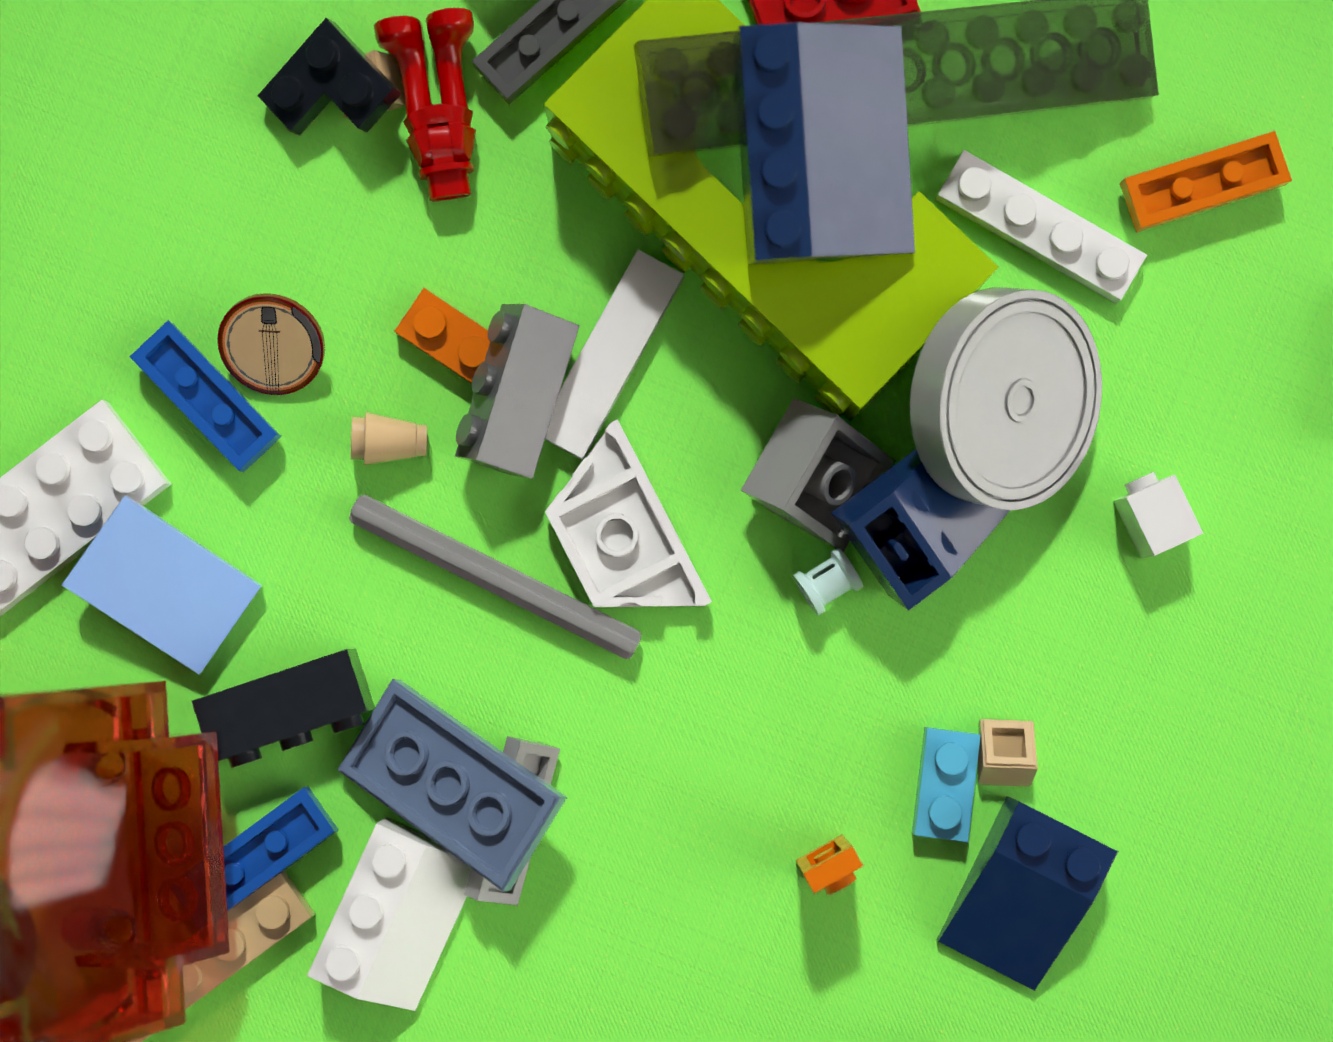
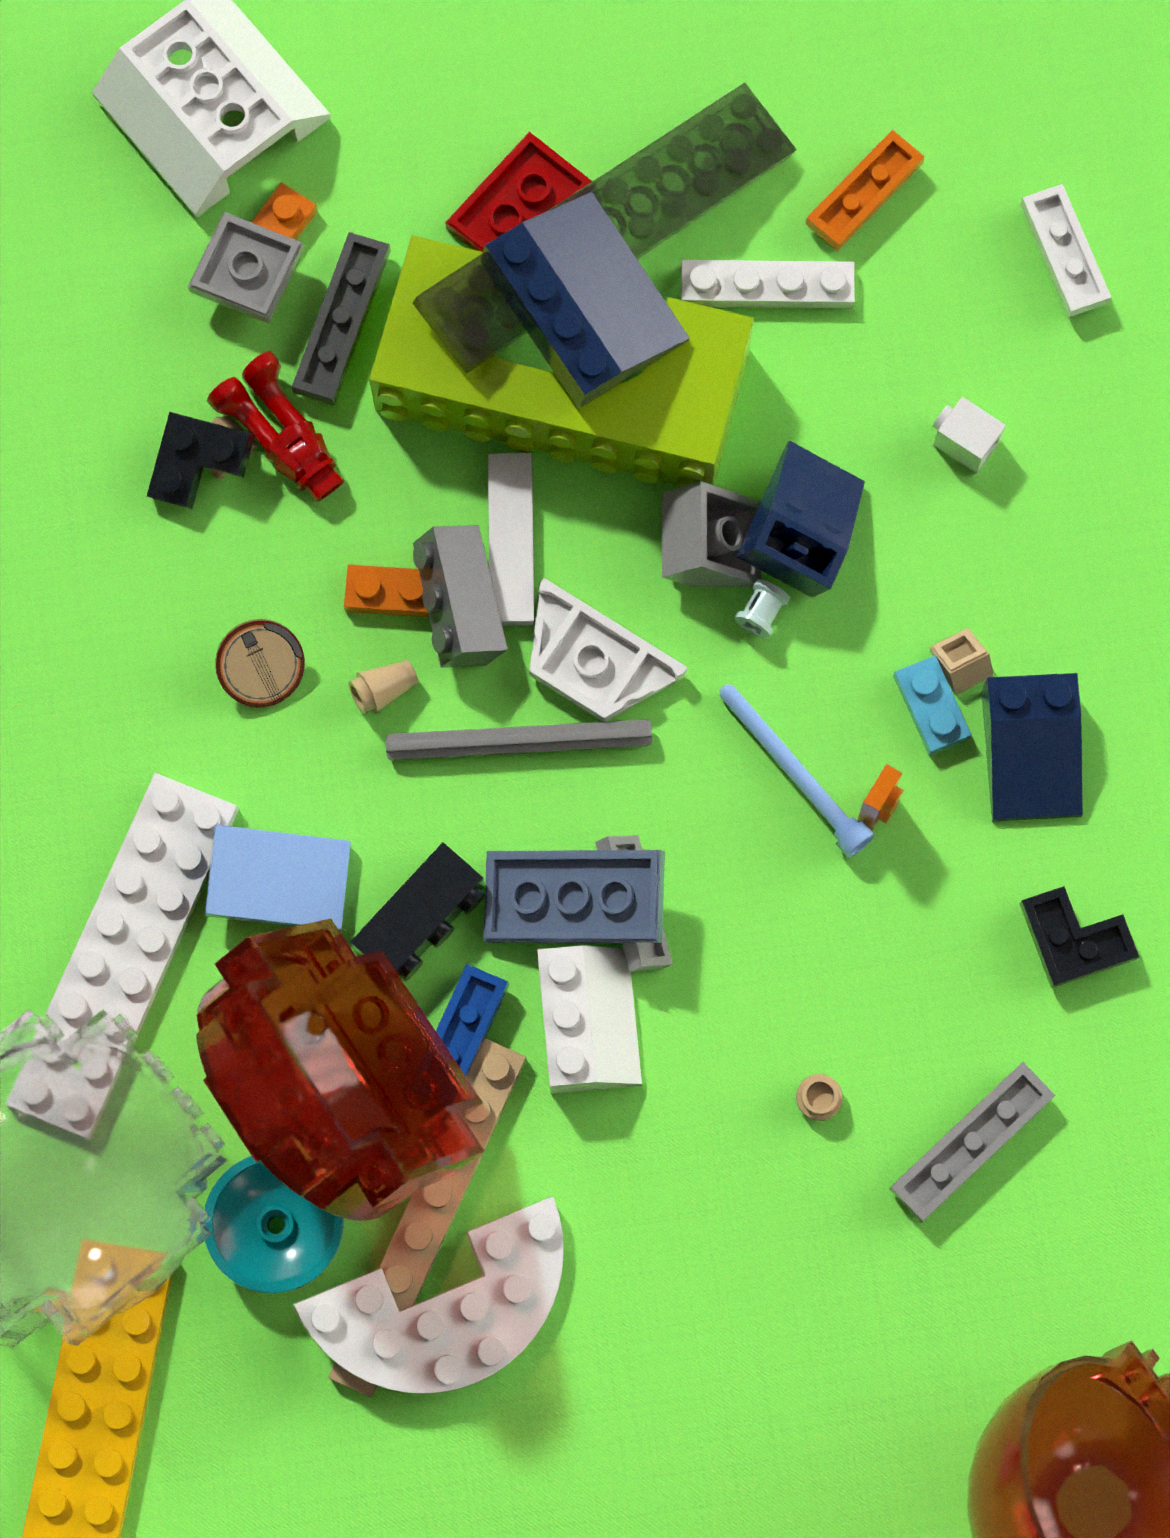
camera: 30 degrees left, 10 degrees down
(205, 396) = (231, 728): blue plate -> none
(779, 875) = (850, 833): none -> light blue piece
(1006, 397) = (812, 405): brick -> none

